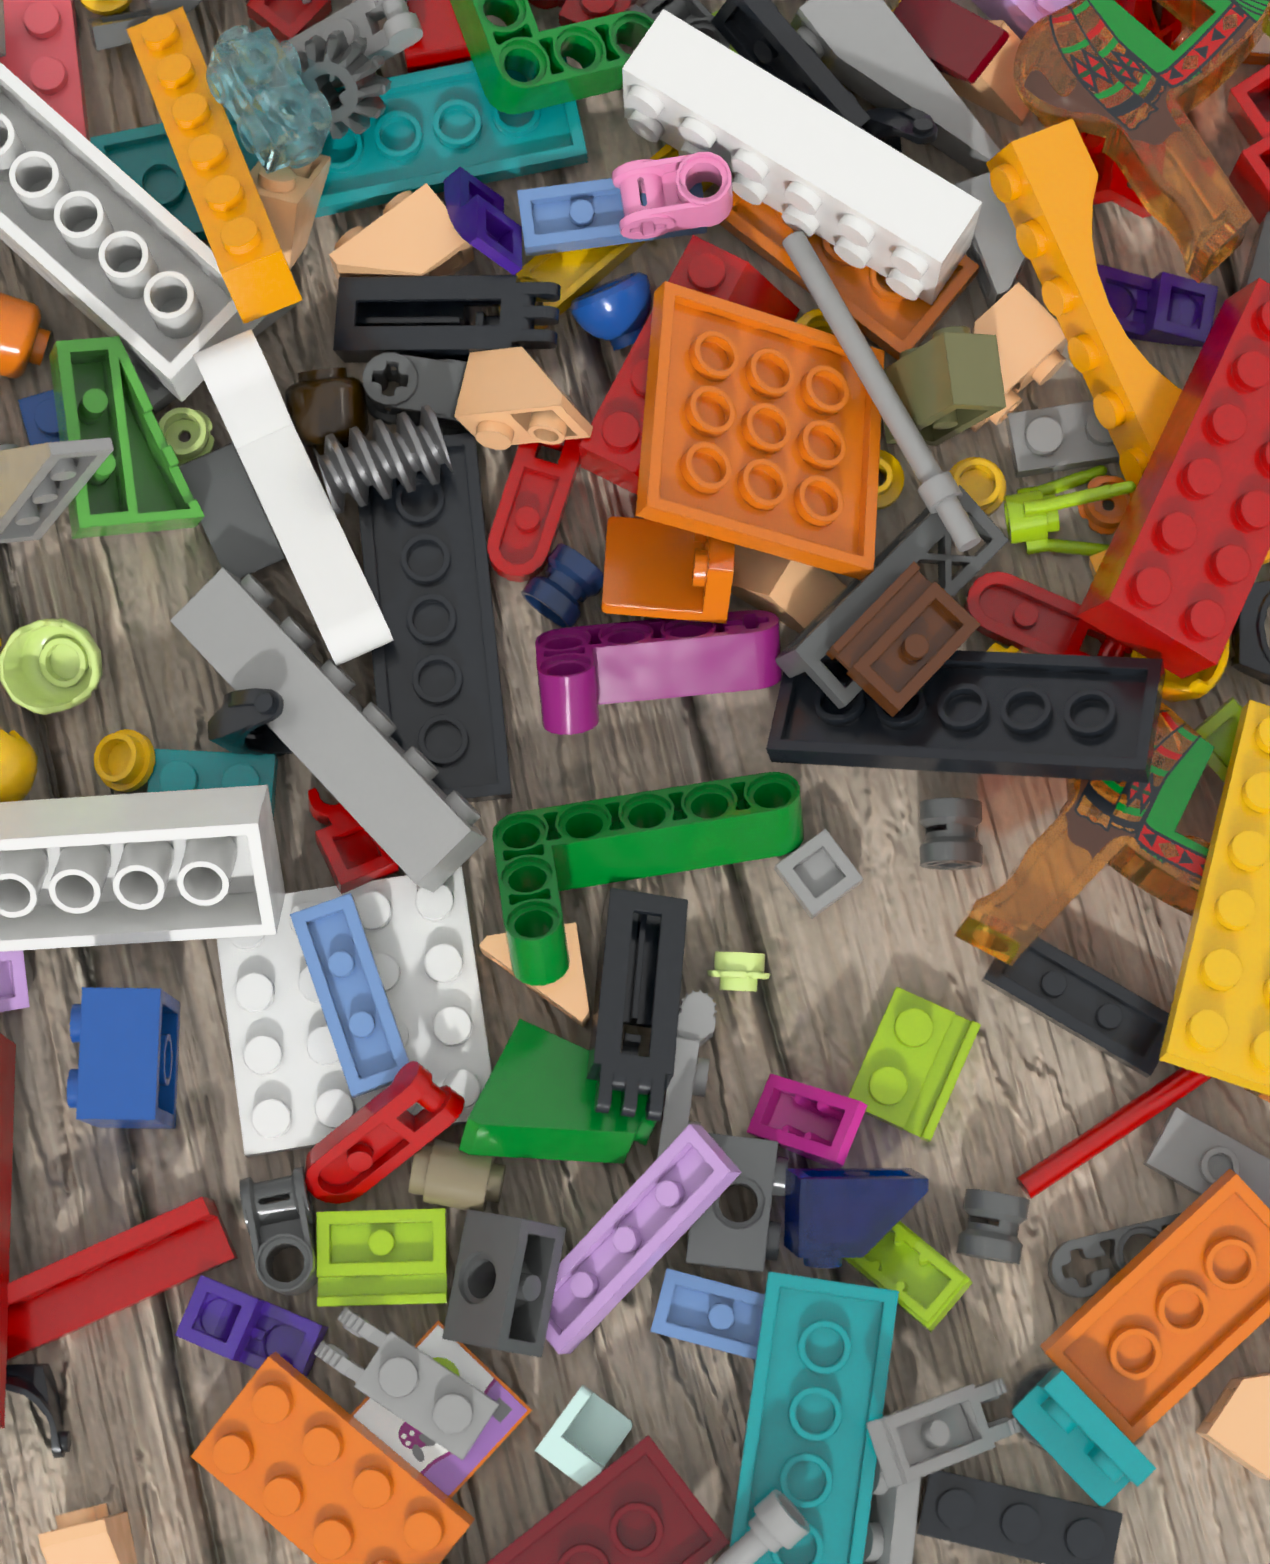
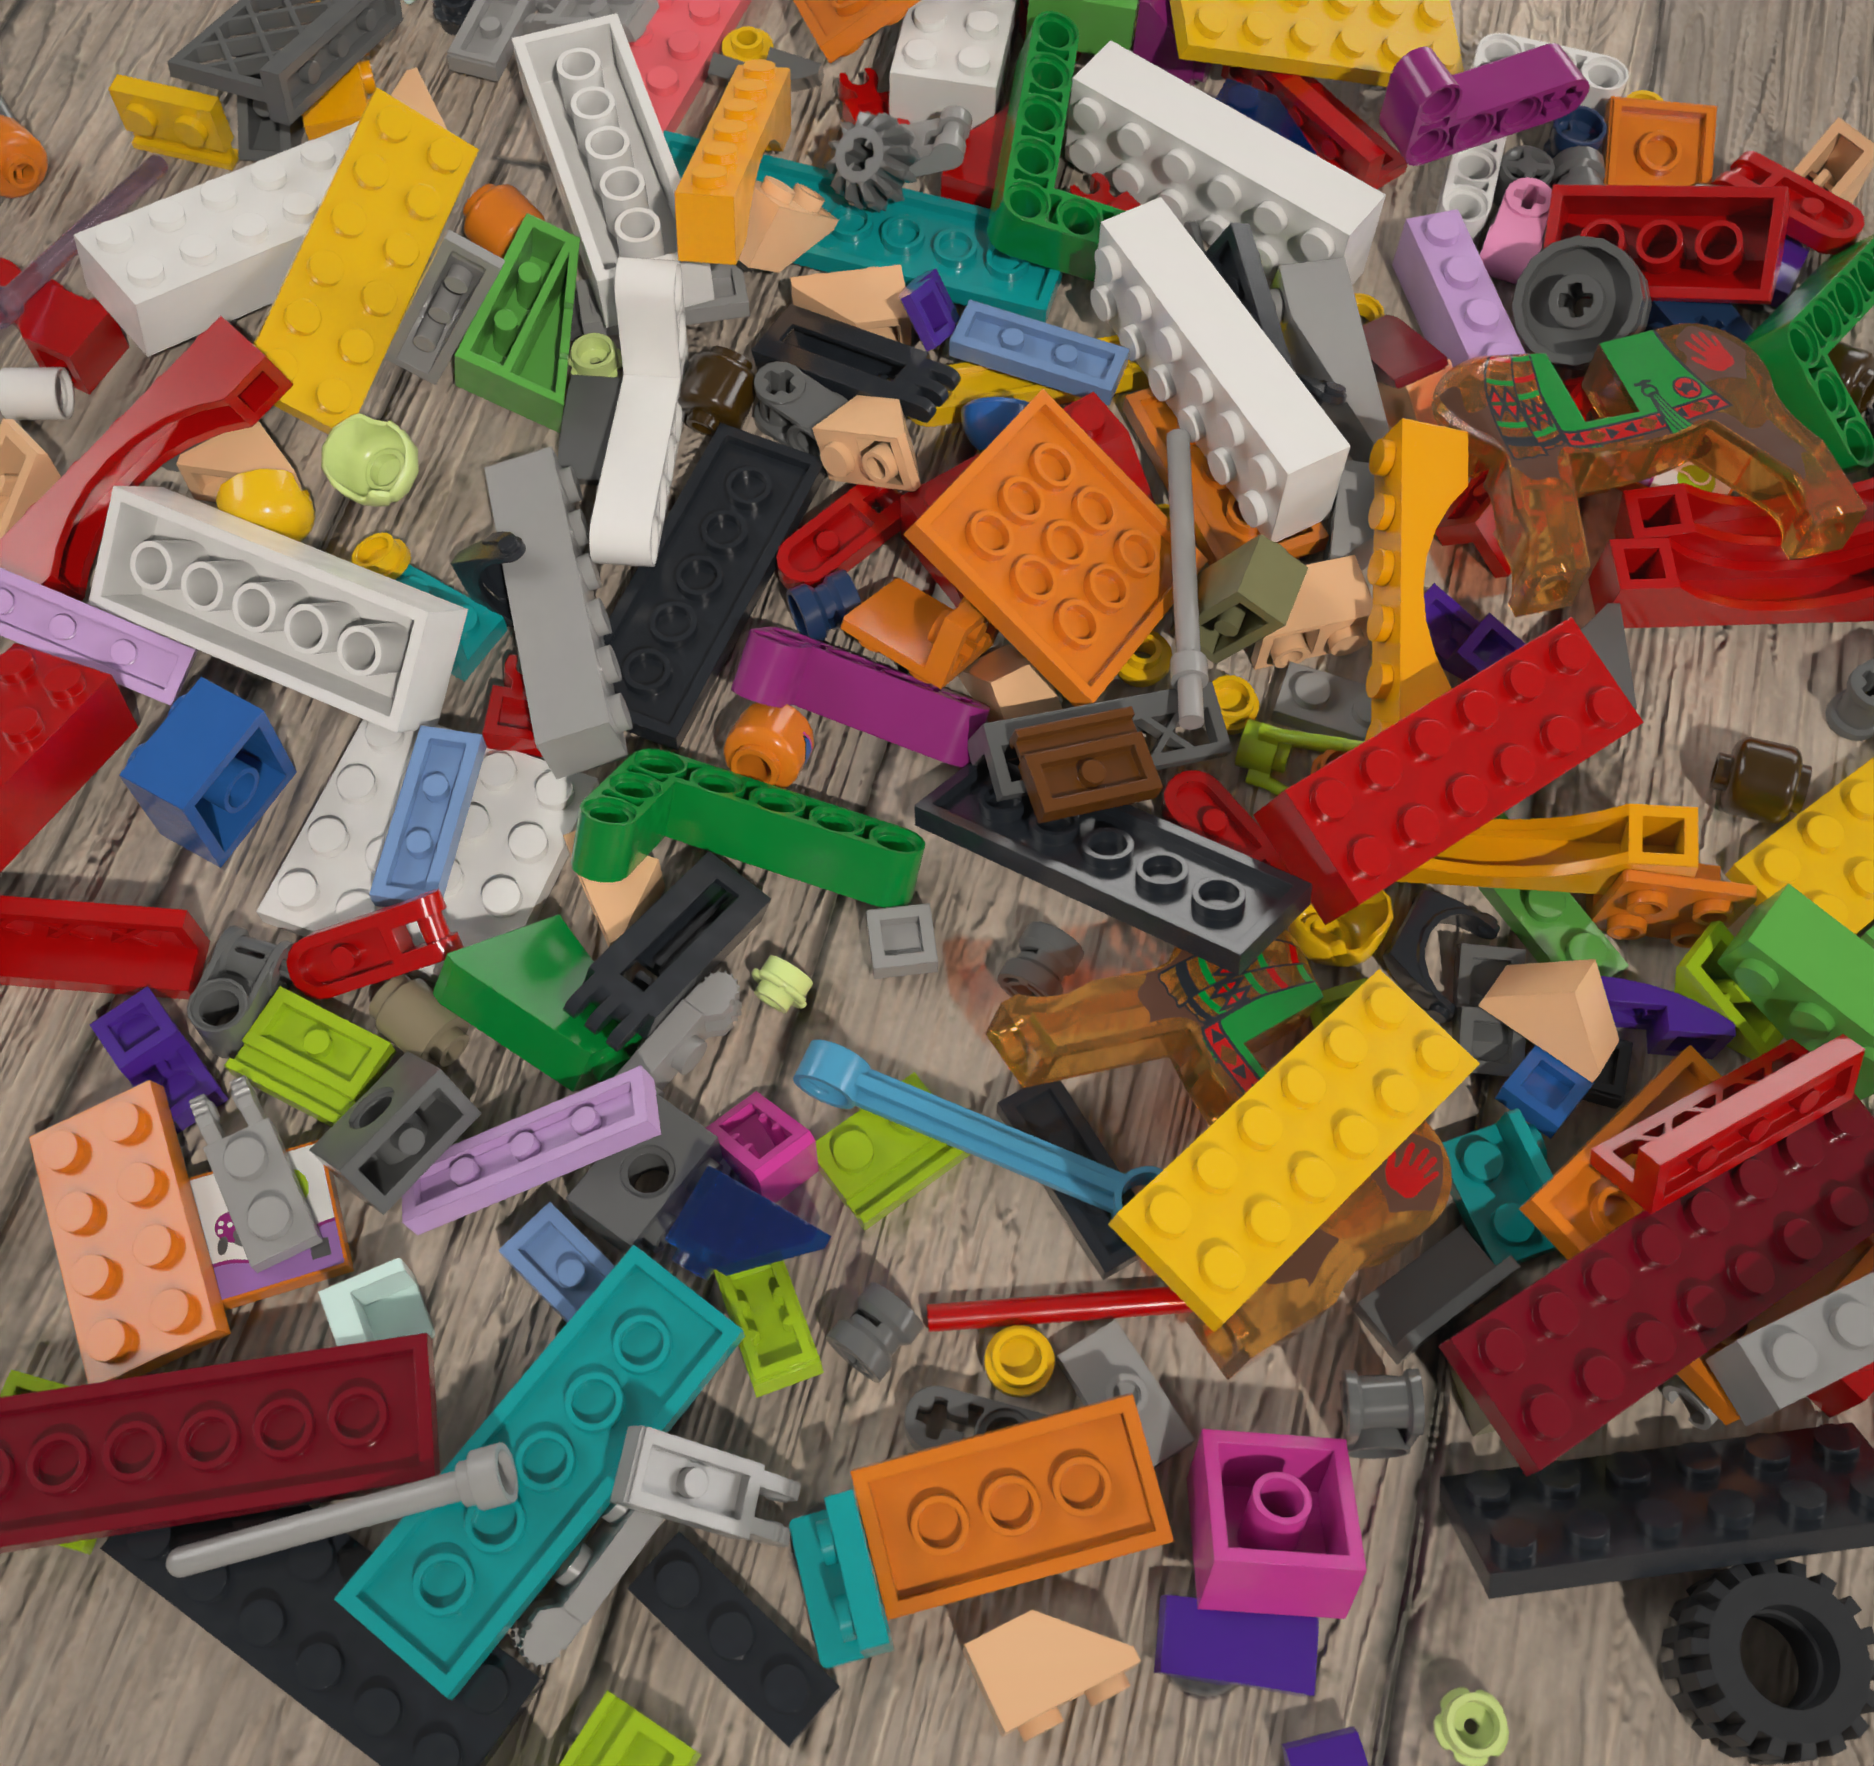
camera: 25 degrees right, 15 degrees down
(255, 79) = (806, 127): clear light blue brick -> none
(383, 459) = (730, 431): flat silver piece -> none
(602, 760) = (769, 744): none -> orange head
(668, 197) = (1097, 348): bright pink piece -> none
(864, 1030) = (847, 1081): none -> dark azure piece
(1117, 1183) = (1019, 1361): none -> yellow plate

